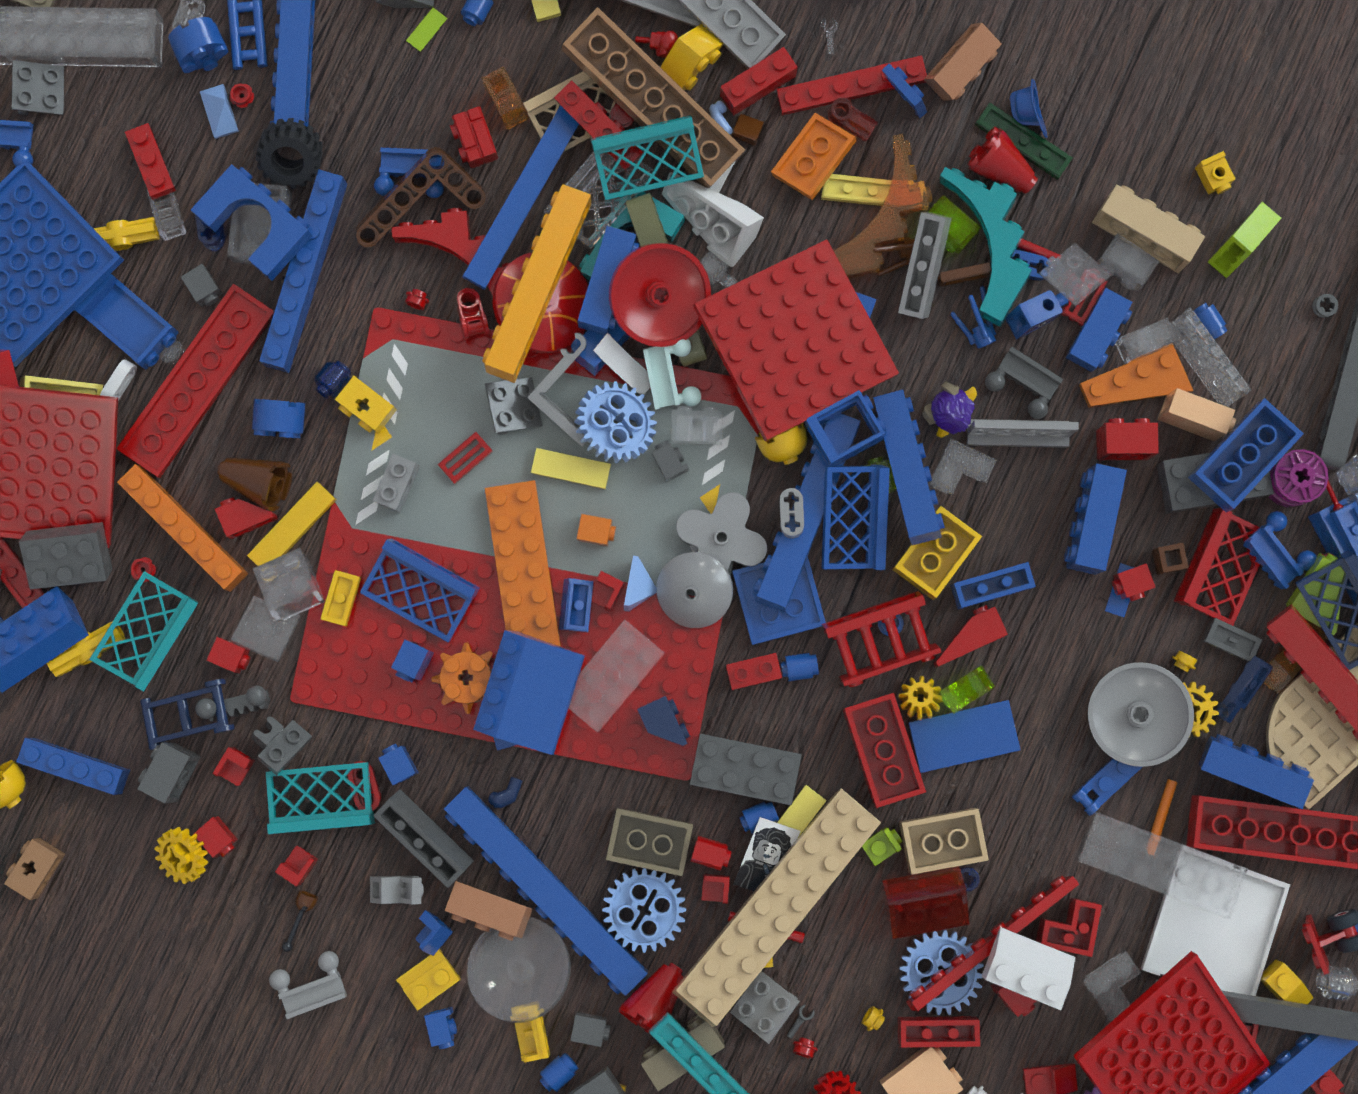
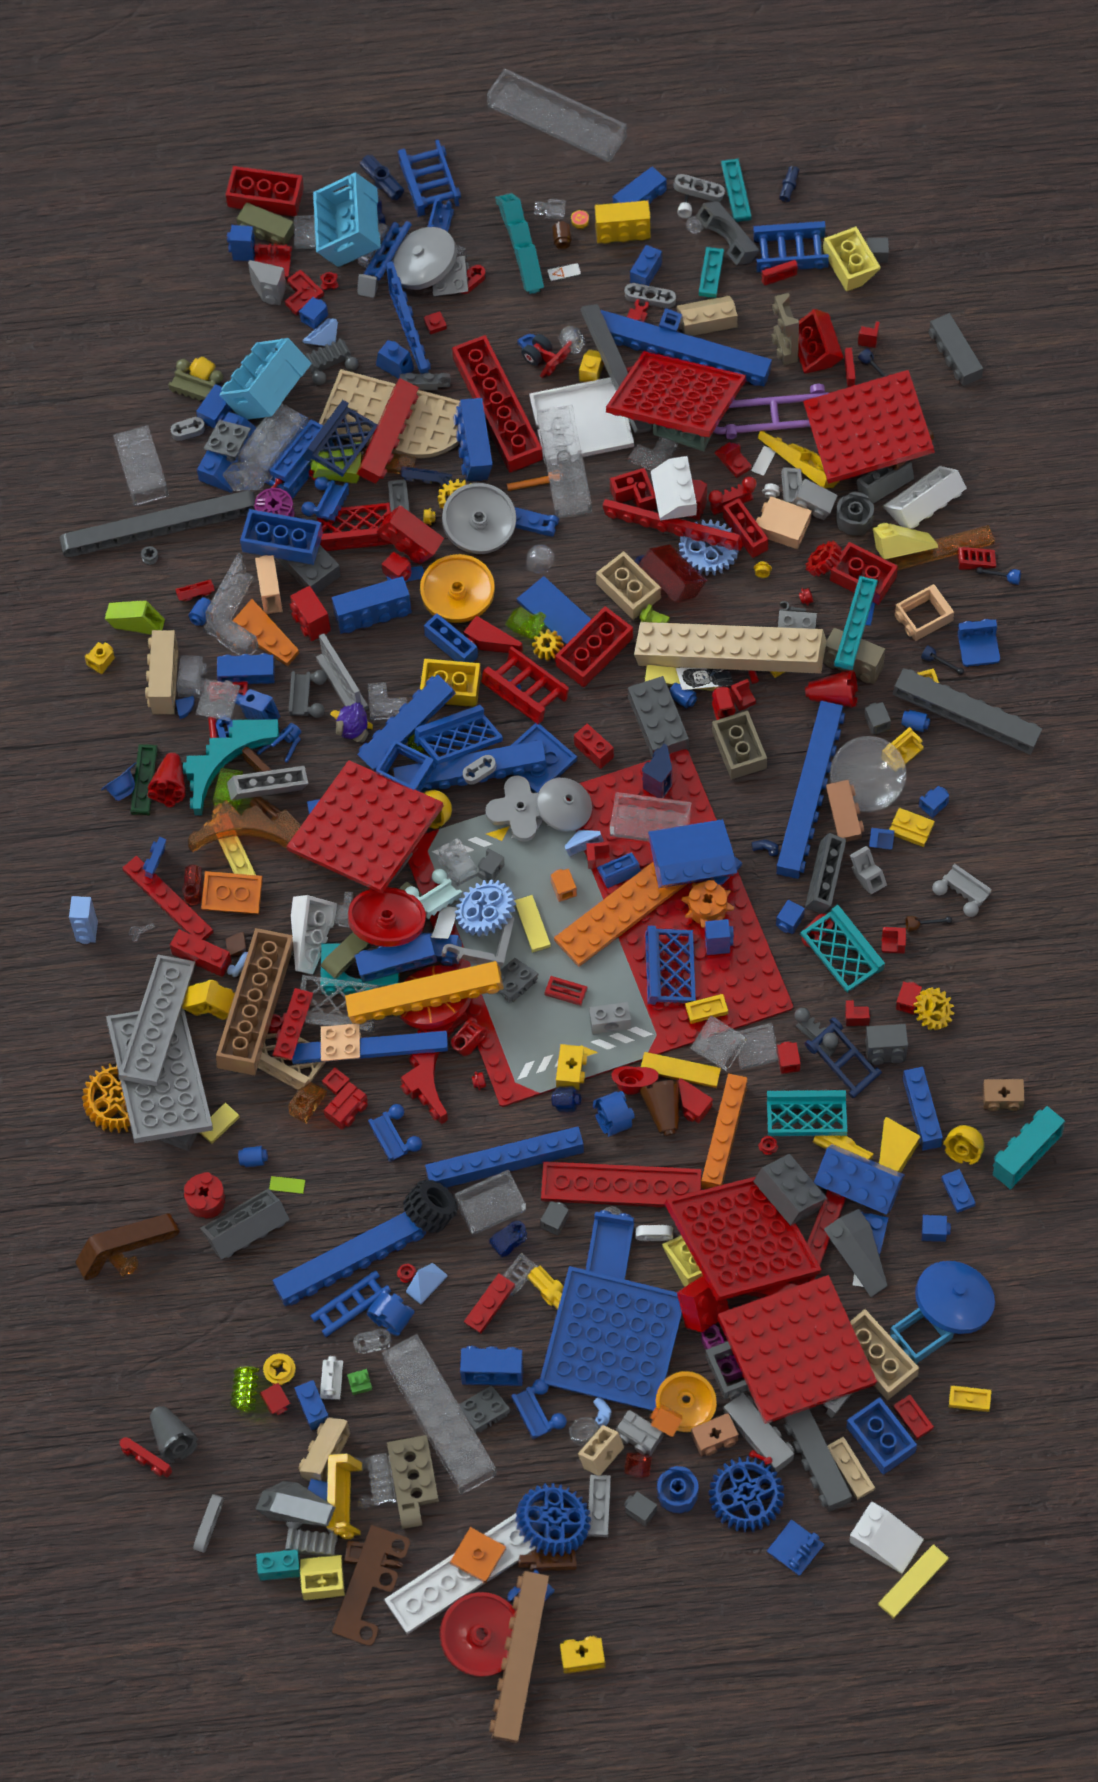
camera: 120 degrees left, 20 degrees down
(47, 706) = (897, 1145): none -> yellow slope
(69, 116) = (491, 1366): none -> blue brick
(237, 190) = (486, 1168): blue arch -> none
(280, 744) = (823, 992): dark grey plate -> none
(306, 467) = (631, 1079): none -> red piece
(415, 191) = (411, 1119): reddish brown beam -> none
(512, 144) = (335, 1081): none -> red plate
(547, 167) = (340, 1042): none -> light nougat hinge
(642, 135) = (287, 984): teal fence -> none
(659, 41) = (208, 1026): red piece -> none
(665, 921) = (783, 713): light blue gear -> none
(799, 667) = (572, 721): blue brick -> none
(963, 62) = (113, 838): nougat brick -> none
(995, 1023) = (744, 491): none -> red gear
(1047, 761) = (540, 559): none -> clear hair
(1060, 635) = (457, 588): none -> light orange dish
(1093, 236) = (184, 706): none -> blue tile
(1161, 614) = (410, 535): none -> red brick
(1170, 558) = (370, 554): reddish brown brick -> none
(1243, 330) = (188, 592): none -> red plate

